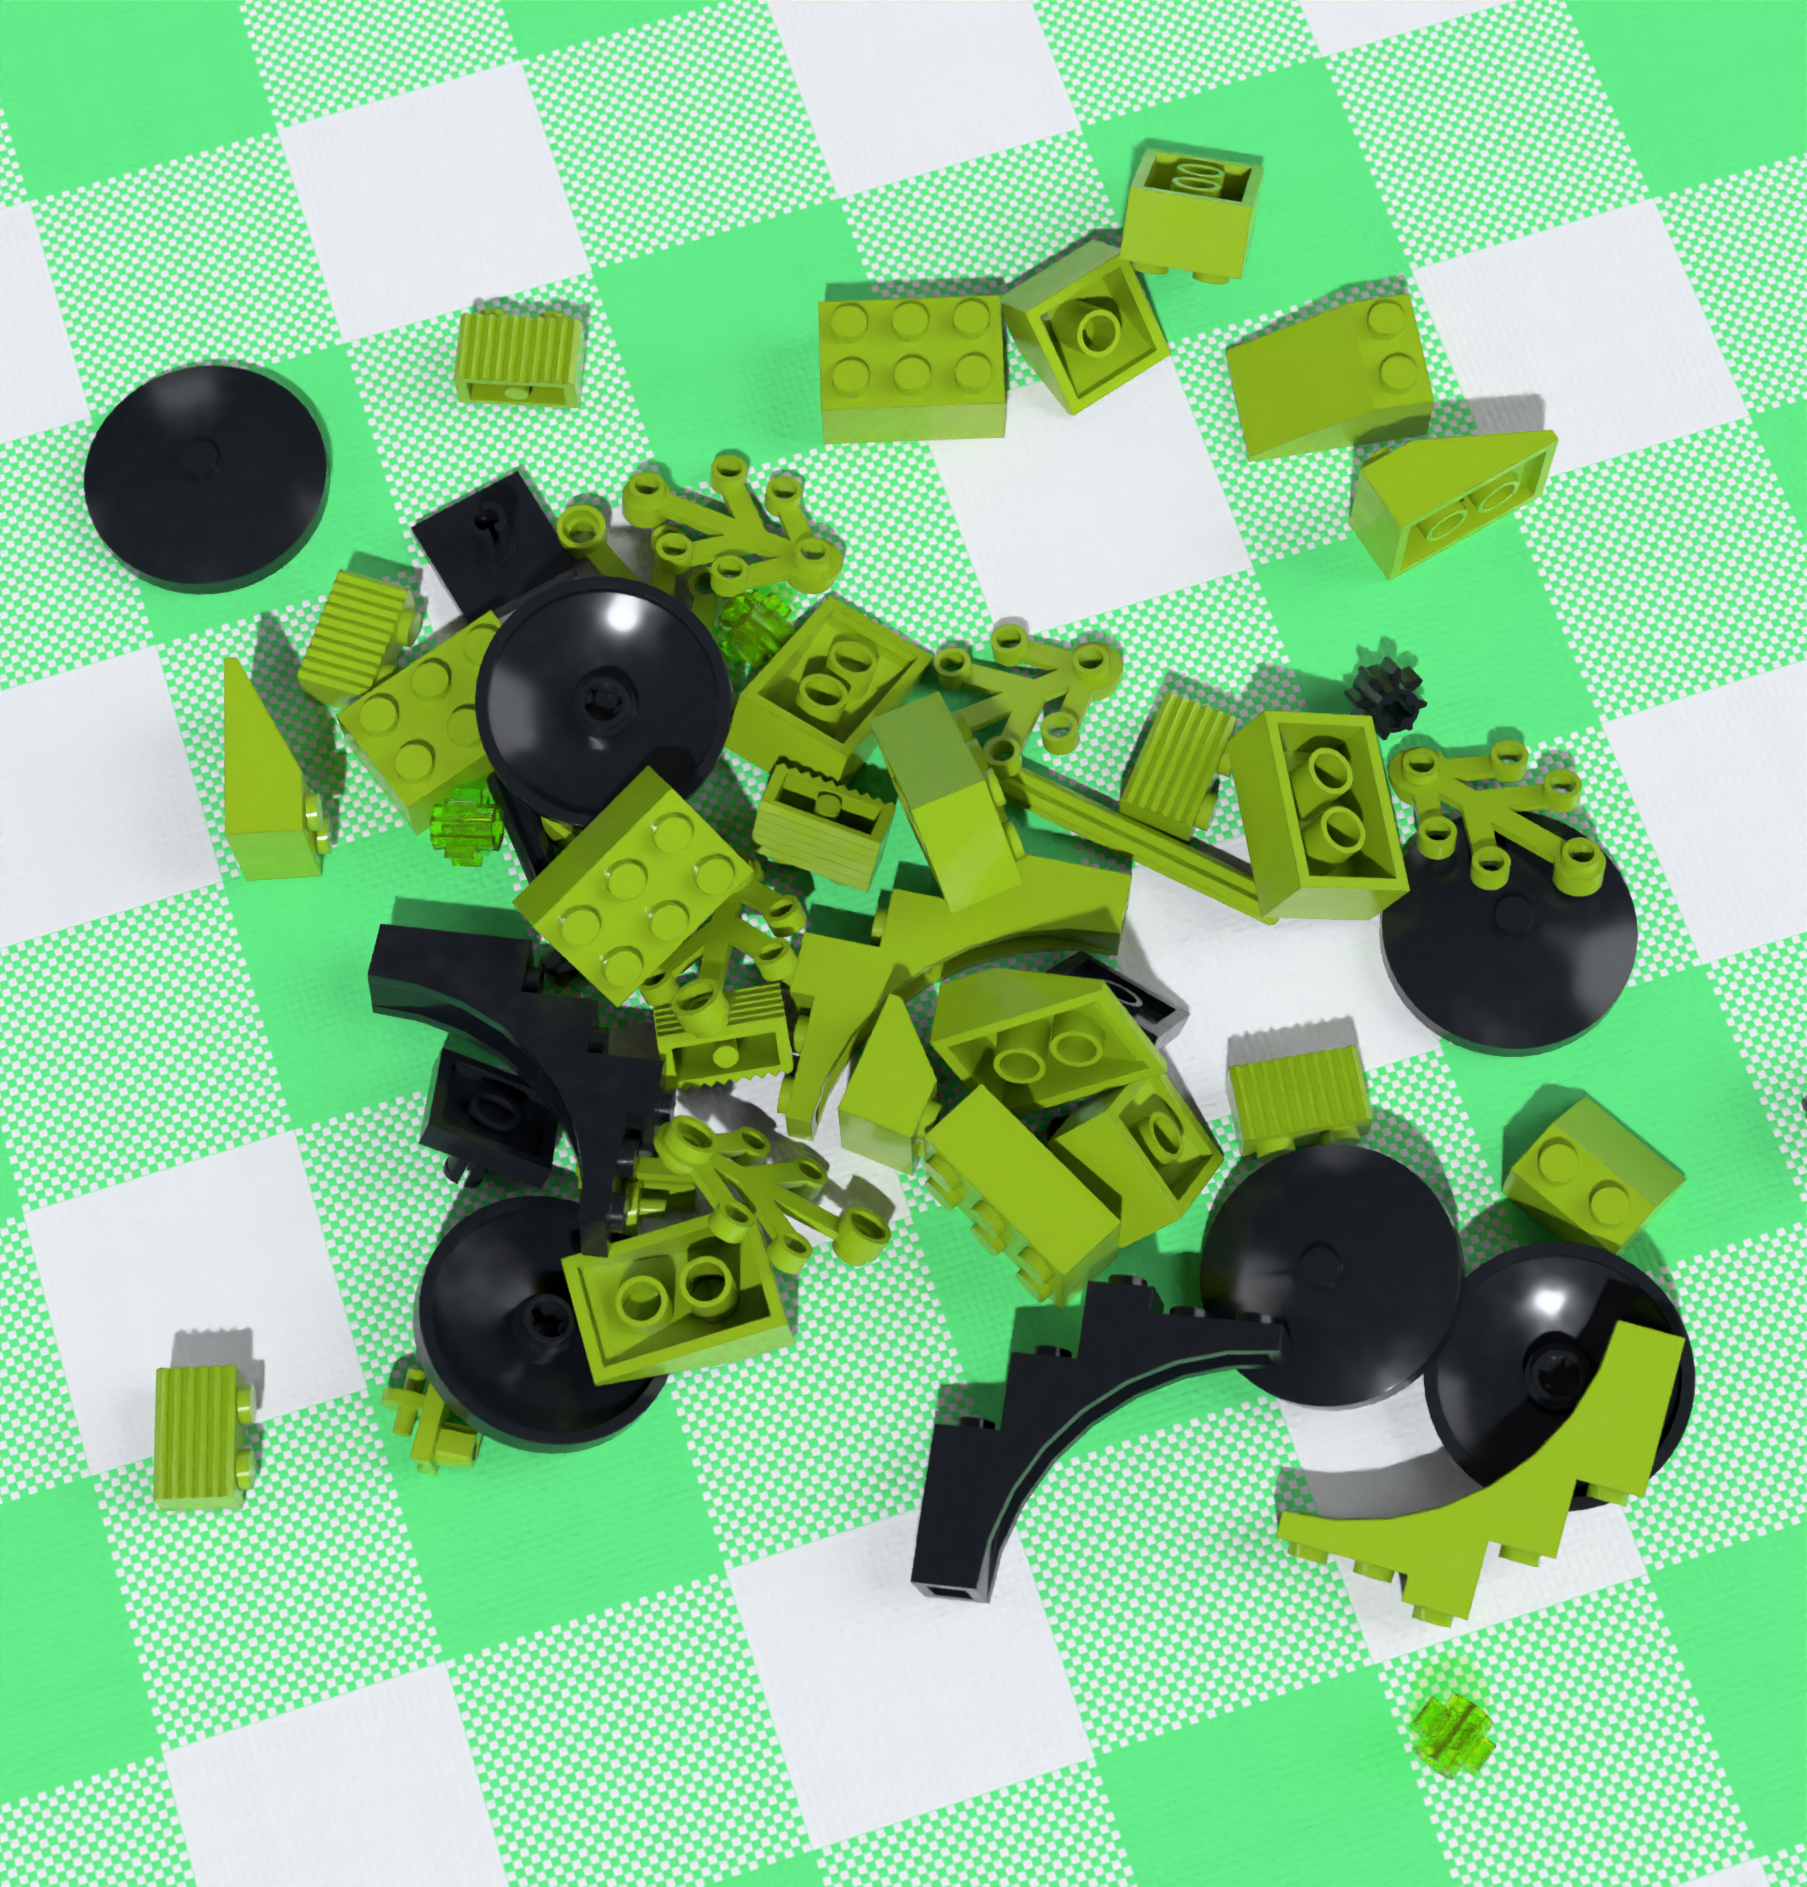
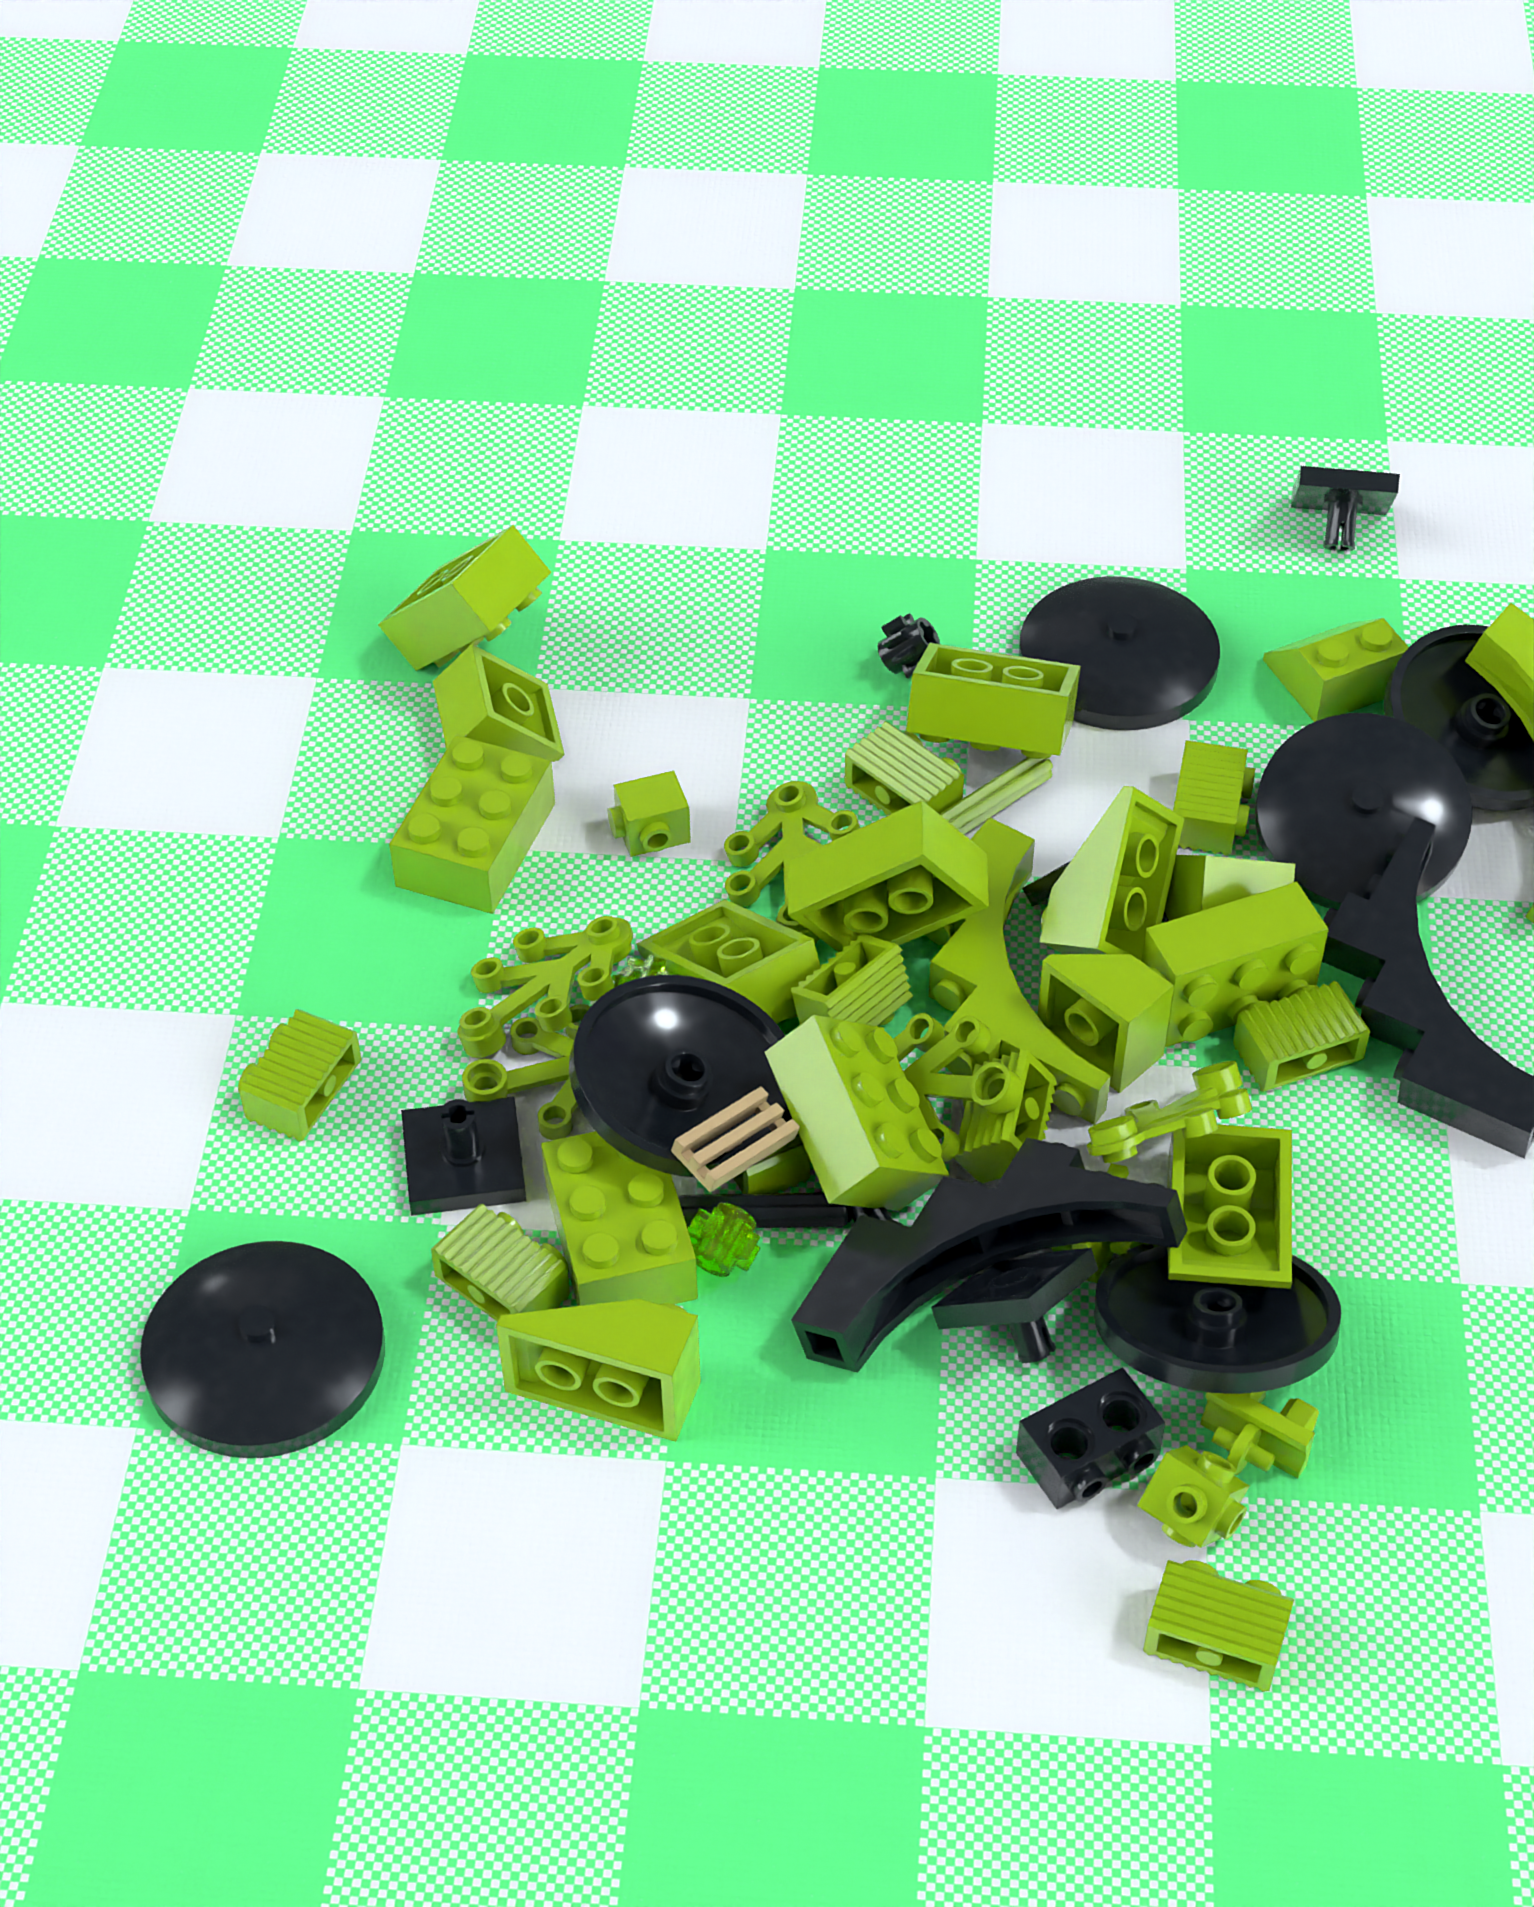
camera: 70 degrees left, 20 degrees down
(325, 1371) = (1195, 1497): none -> lime brick
(376, 1244) = (1081, 1427): none -> black brick
(481, 757) = (766, 1115): none -> tan tile
(976, 1304) = (1300, 1035): none -> lime brick
(1006, 535) = (650, 814): none -> lime brick
(1333, 381) = (632, 594): lime slope -> none
(1426, 777) = (1097, 582): lime plant -> none
(1443, 491) = (768, 561): lime slope -> none

